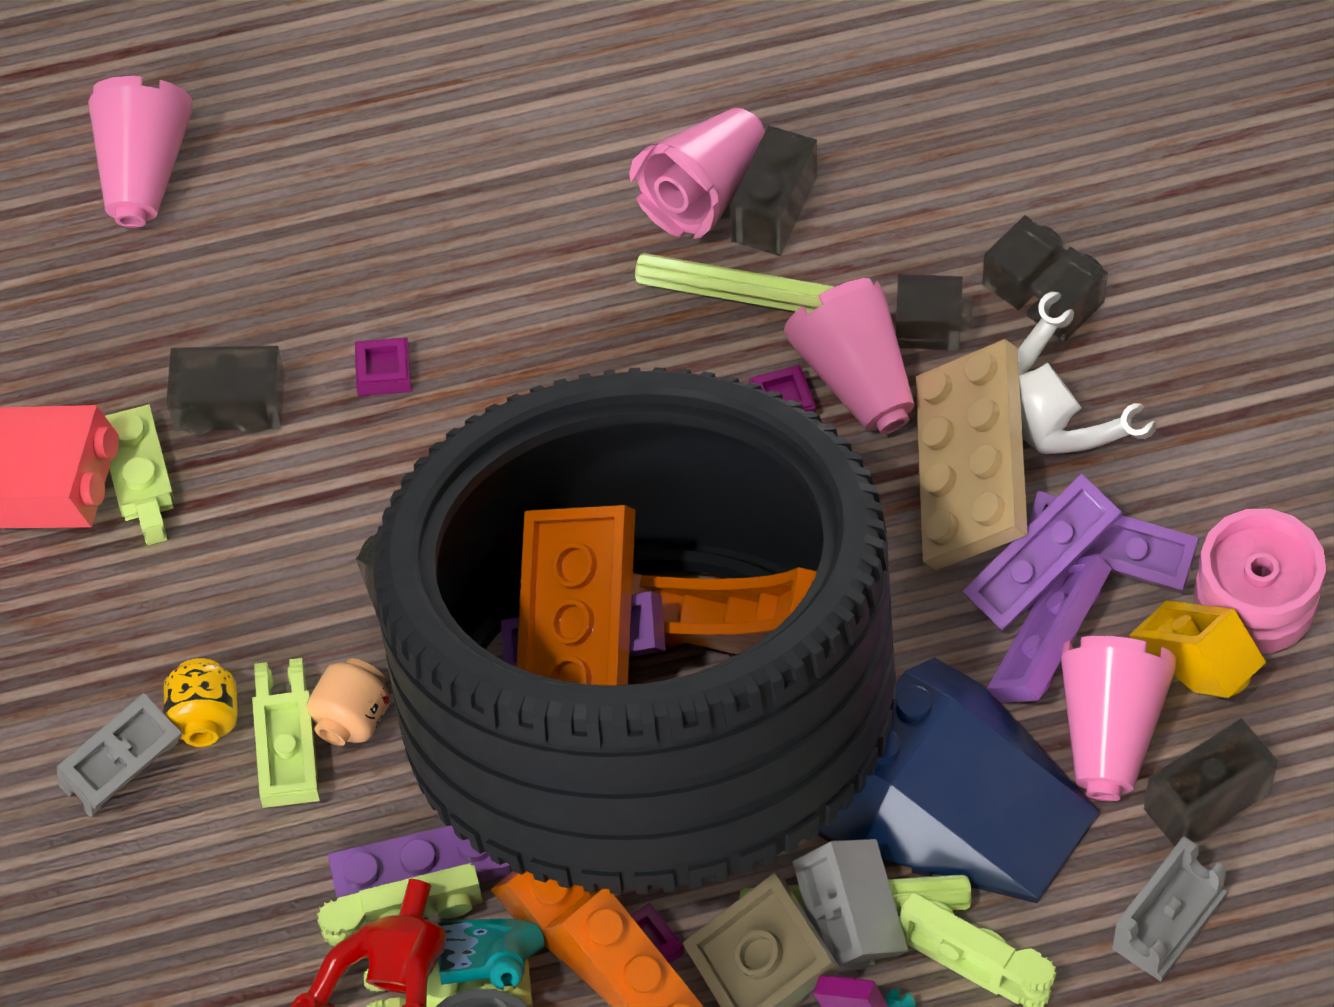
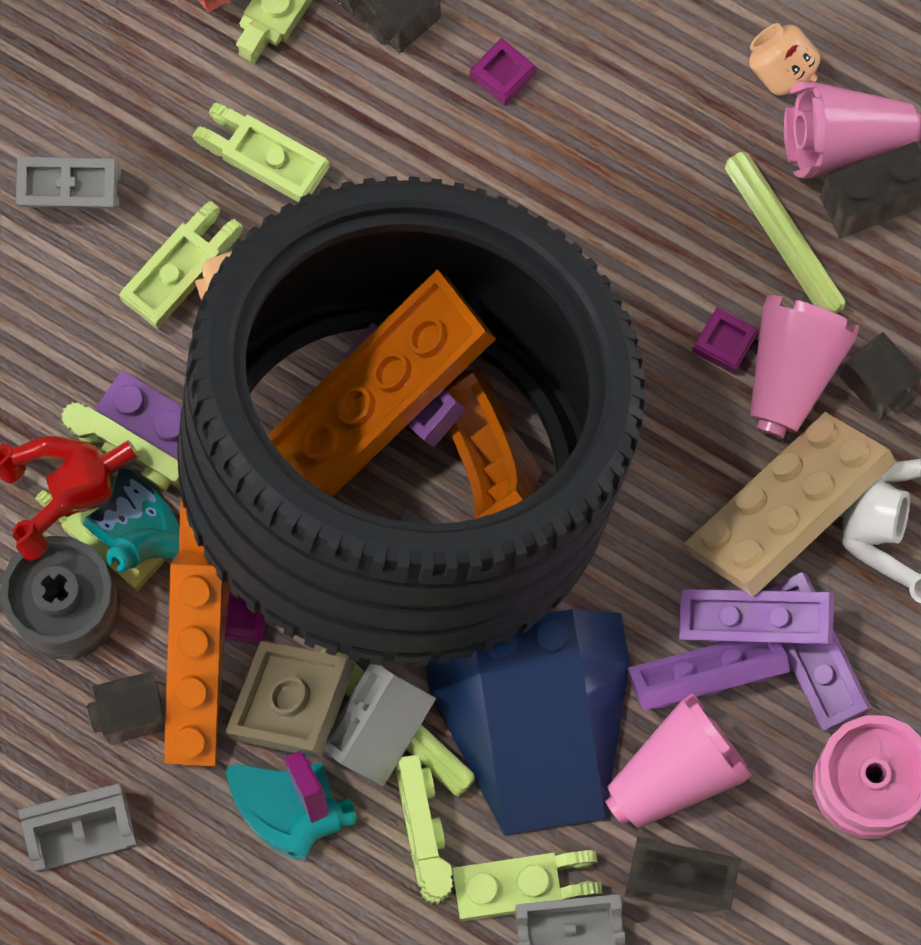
camera: 45 degrees right, 15 degrees up
(201, 700) = (149, 195): yellow head -> none
(254, 591) = (264, 153): none -> yellowish green hinge
(596, 163) = (783, 58): none -> light nougat head
(1087, 926) = (498, 886): none -> yellowish green hinge
(1209, 646) = (787, 780): yellow slope -> none

